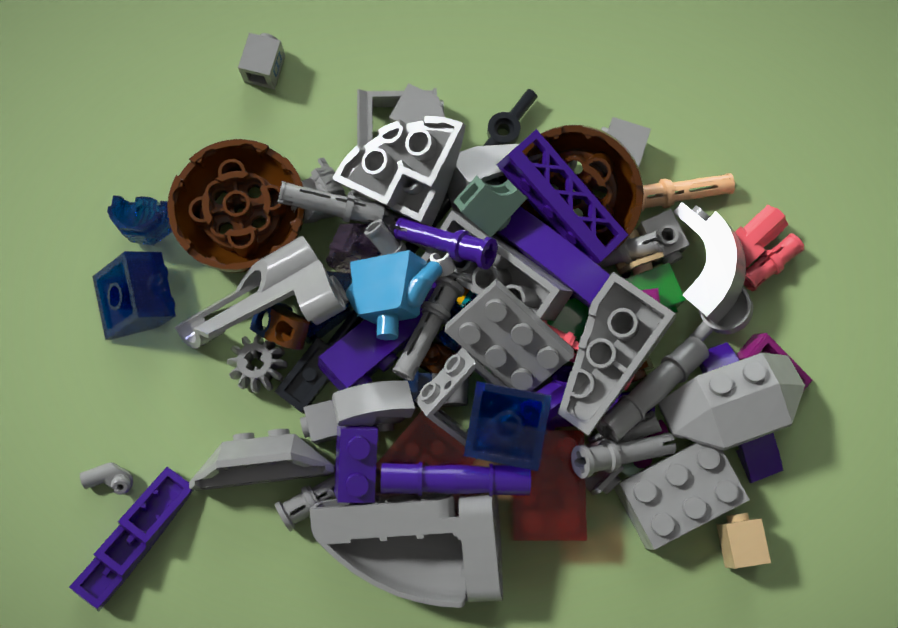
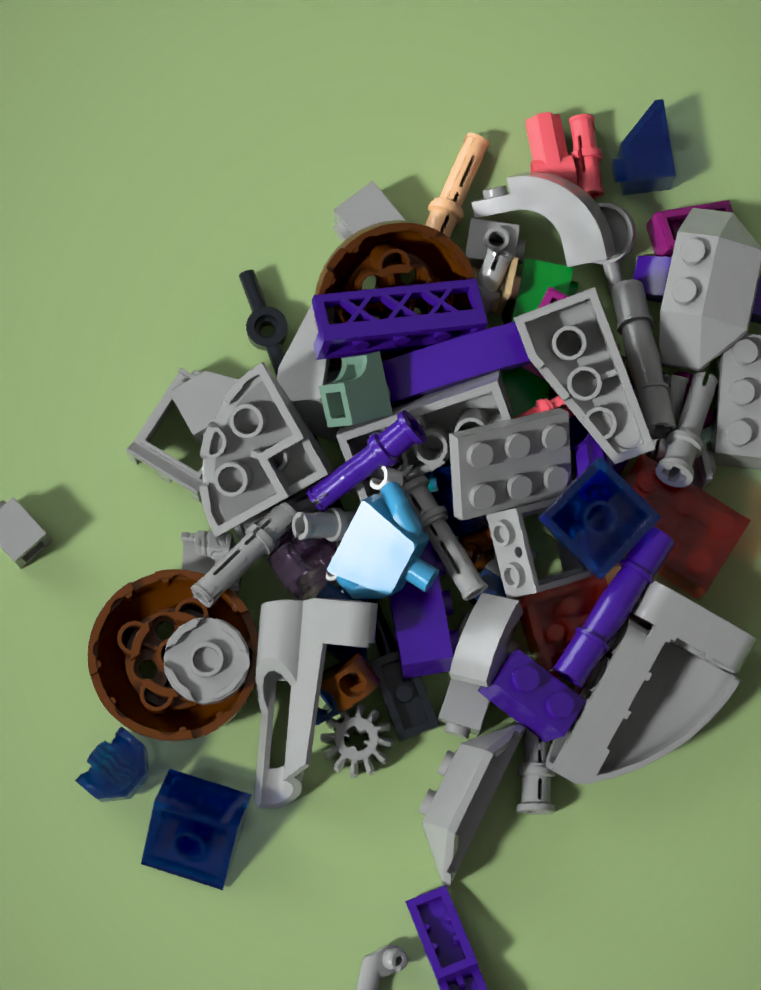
camera: 55 degrees left, 0 degrees up
(243, 226) = (206, 660): none -> light grey tile
(803, 300) = (646, 155): none -> clear blue slope

